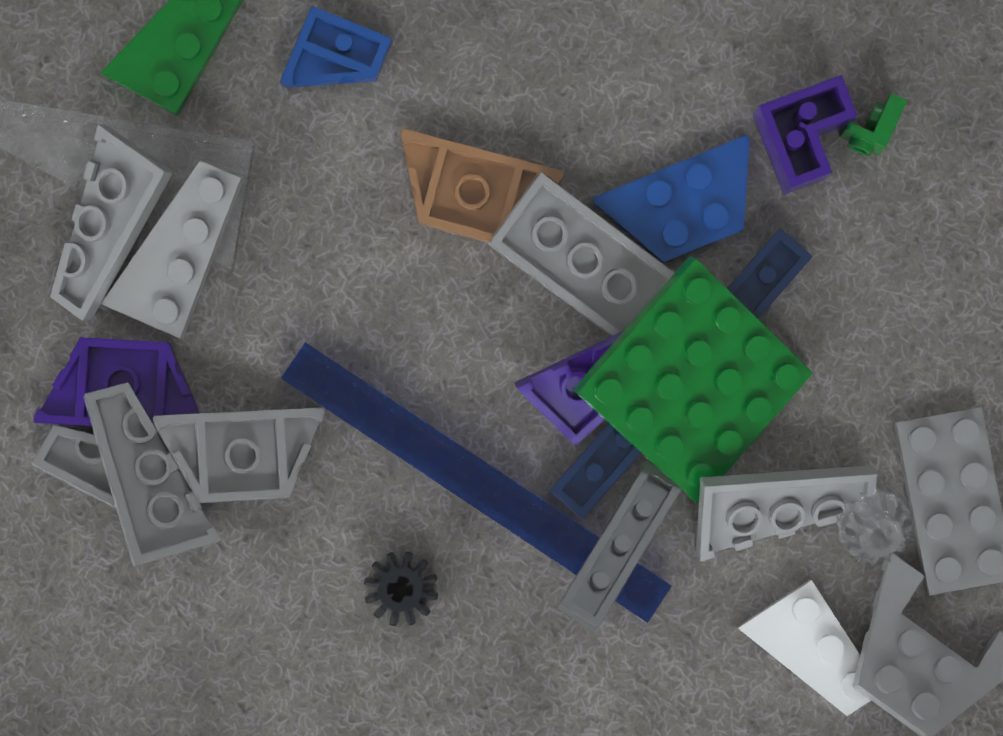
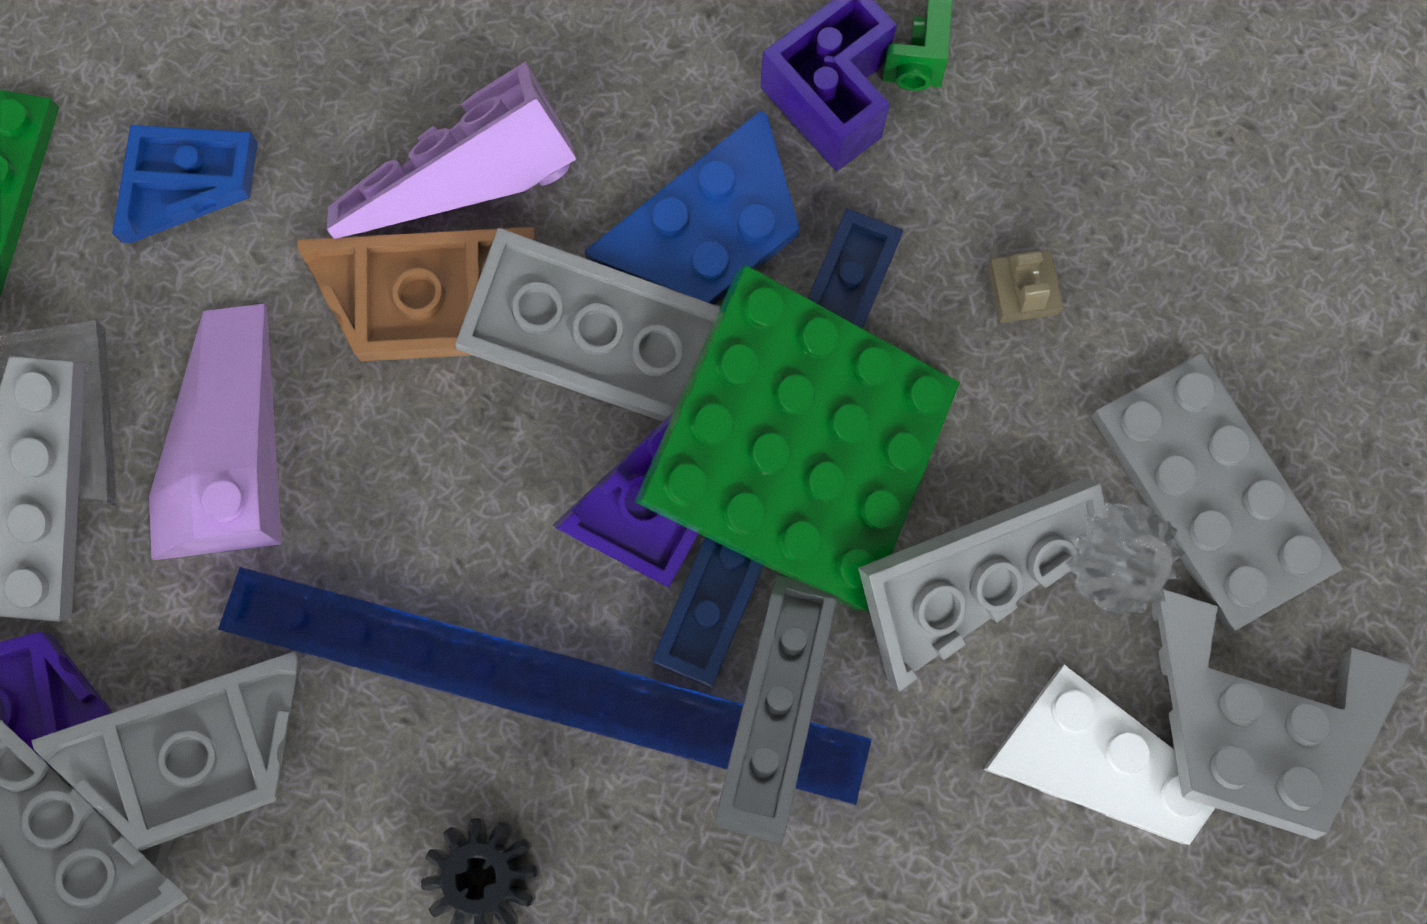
camera: 15 degrees left, 10 degrees down
(308, 258) = (220, 451): none -> lavender wedge
(547, 106) = (495, 151): none -> lavender wedge
(882, 320) = (1025, 286): none -> dark tan tile

